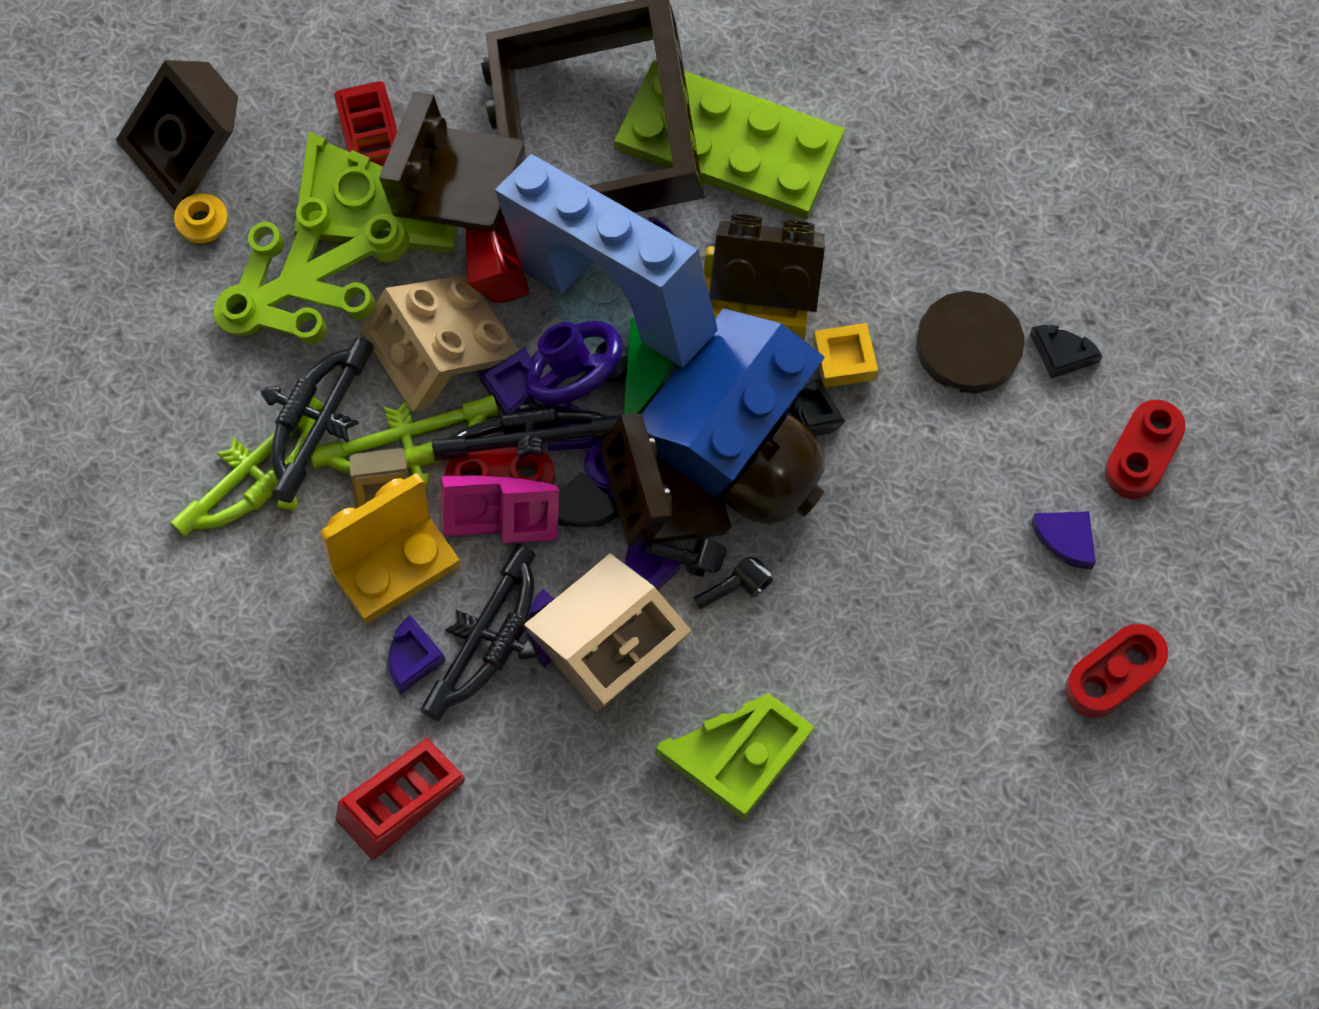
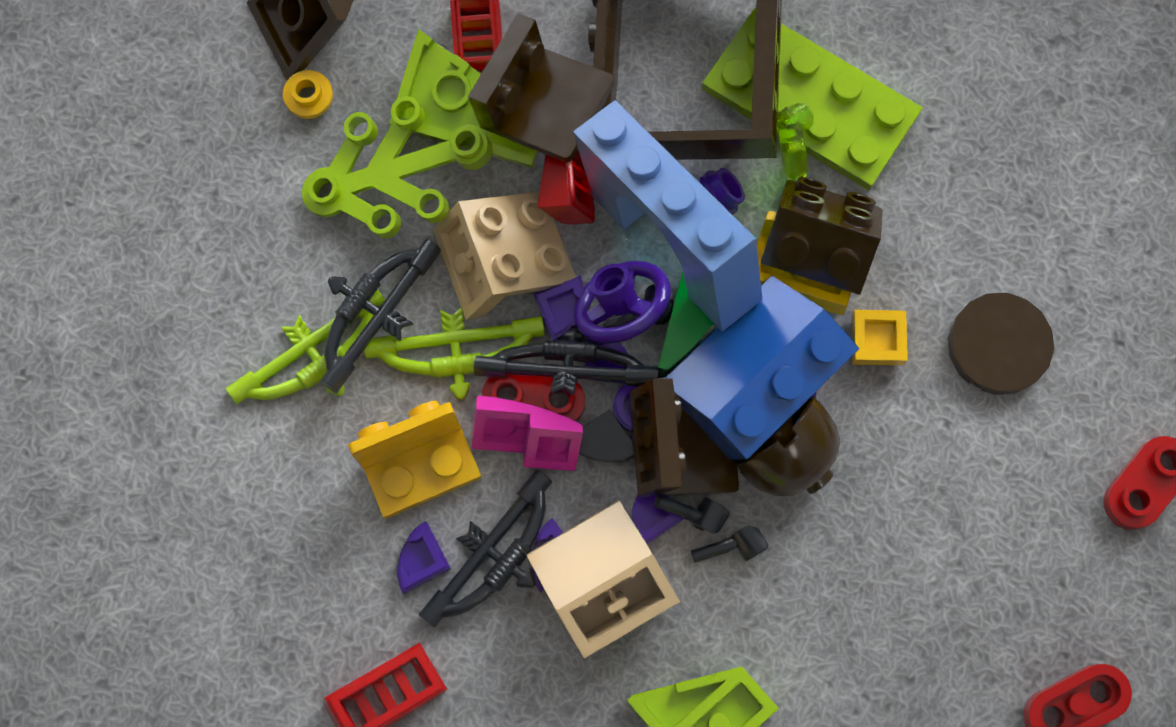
camera: 15 degrees right, 10 degrees up
(373, 470) = (419, 381): dark tan slope -> none
(717, 178) = (791, 139): none -> clear neon green arm
(816, 409) = (841, 390): black tile -> none
(1063, 350) = (1089, 367): black tile -> none
(1067, 536) = (1056, 558): dark purple tile -> none

